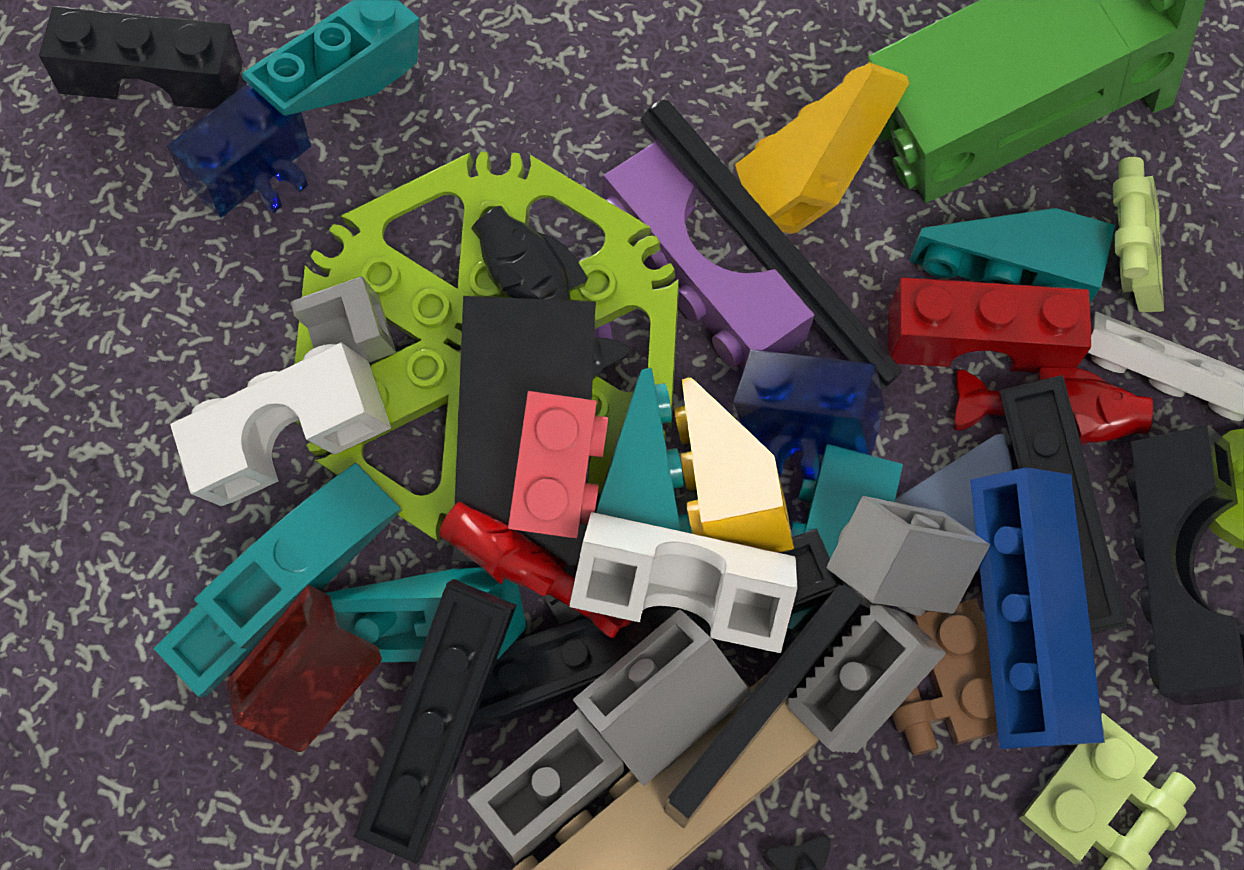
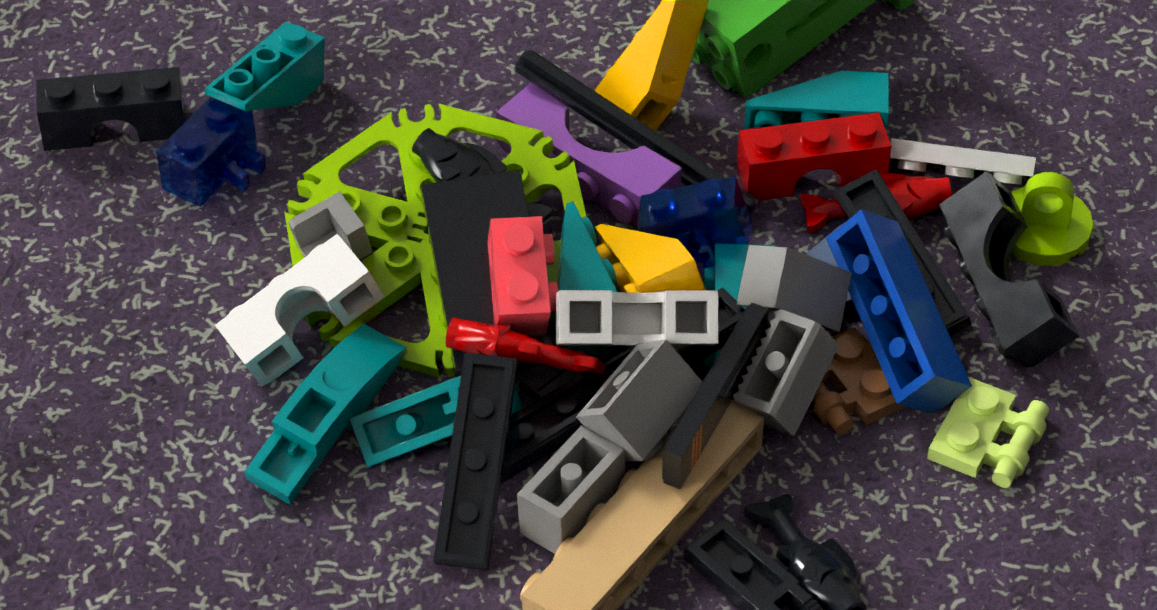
camera: 10 degrees left, 20 degrees down
(300, 673) = (365, 460): clear red panel -> none
(1139, 235) = (908, 78): yellowish green plate -> none

